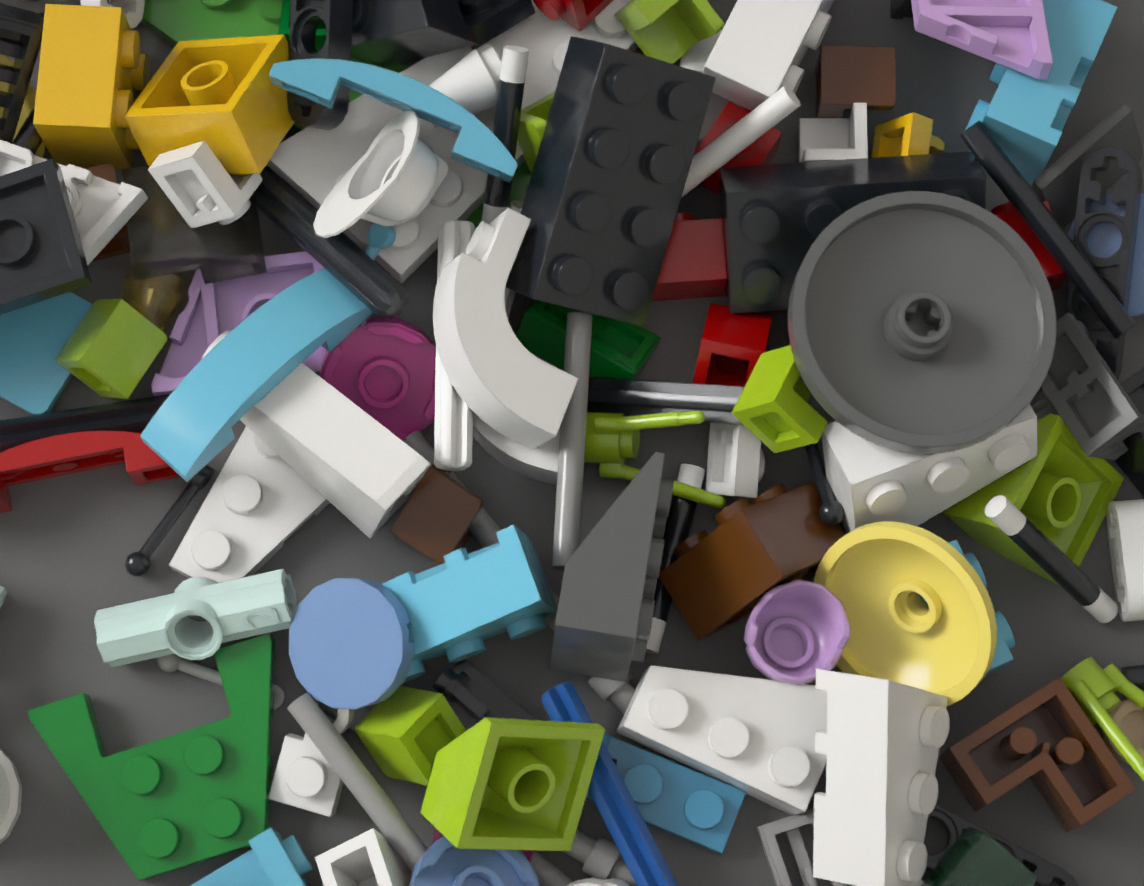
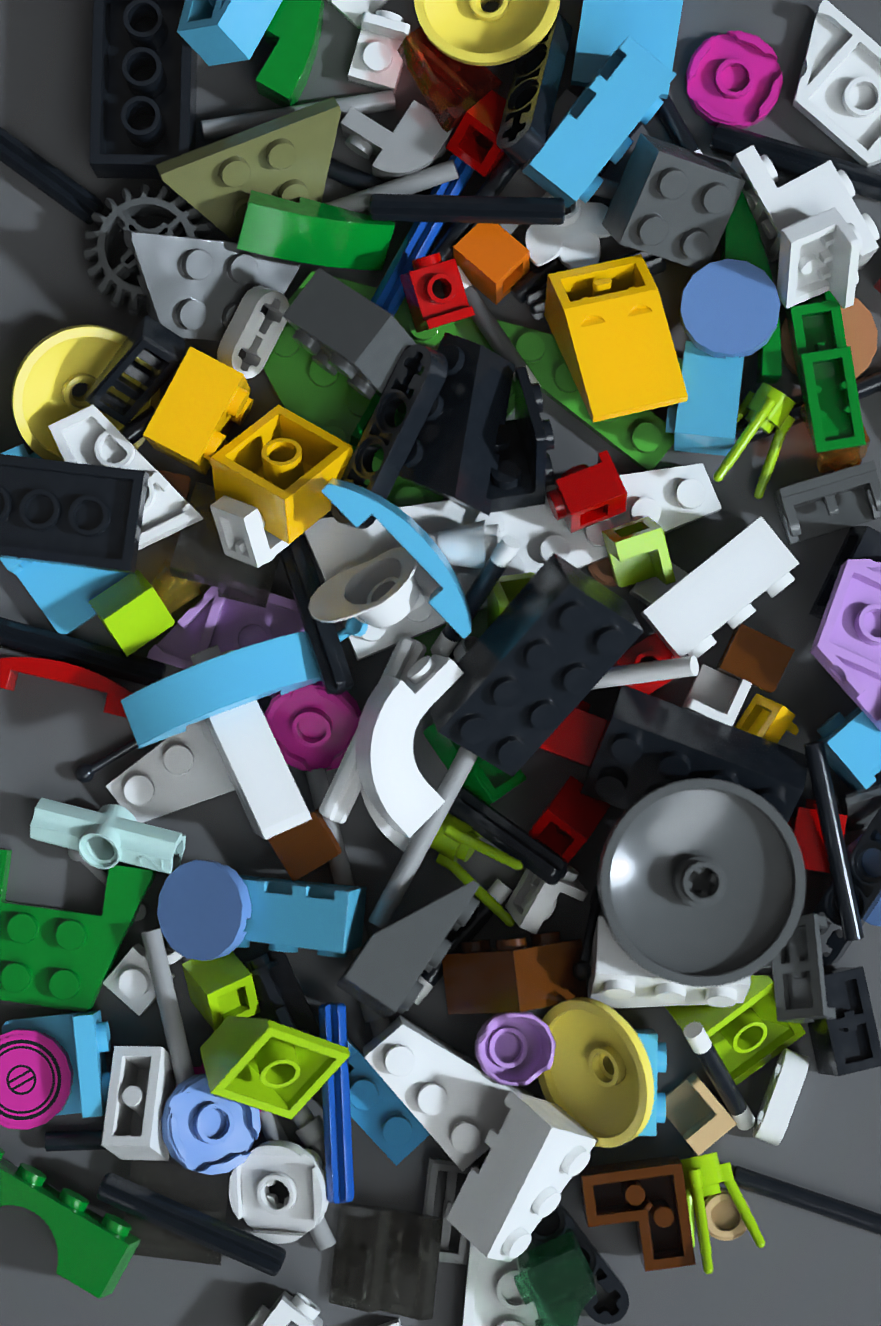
camera: 25 degrees right, 10 degrees up
(777, 405) = (574, 882): lime panel -> none
(1048, 623) = (697, 1114): none -> tan panel

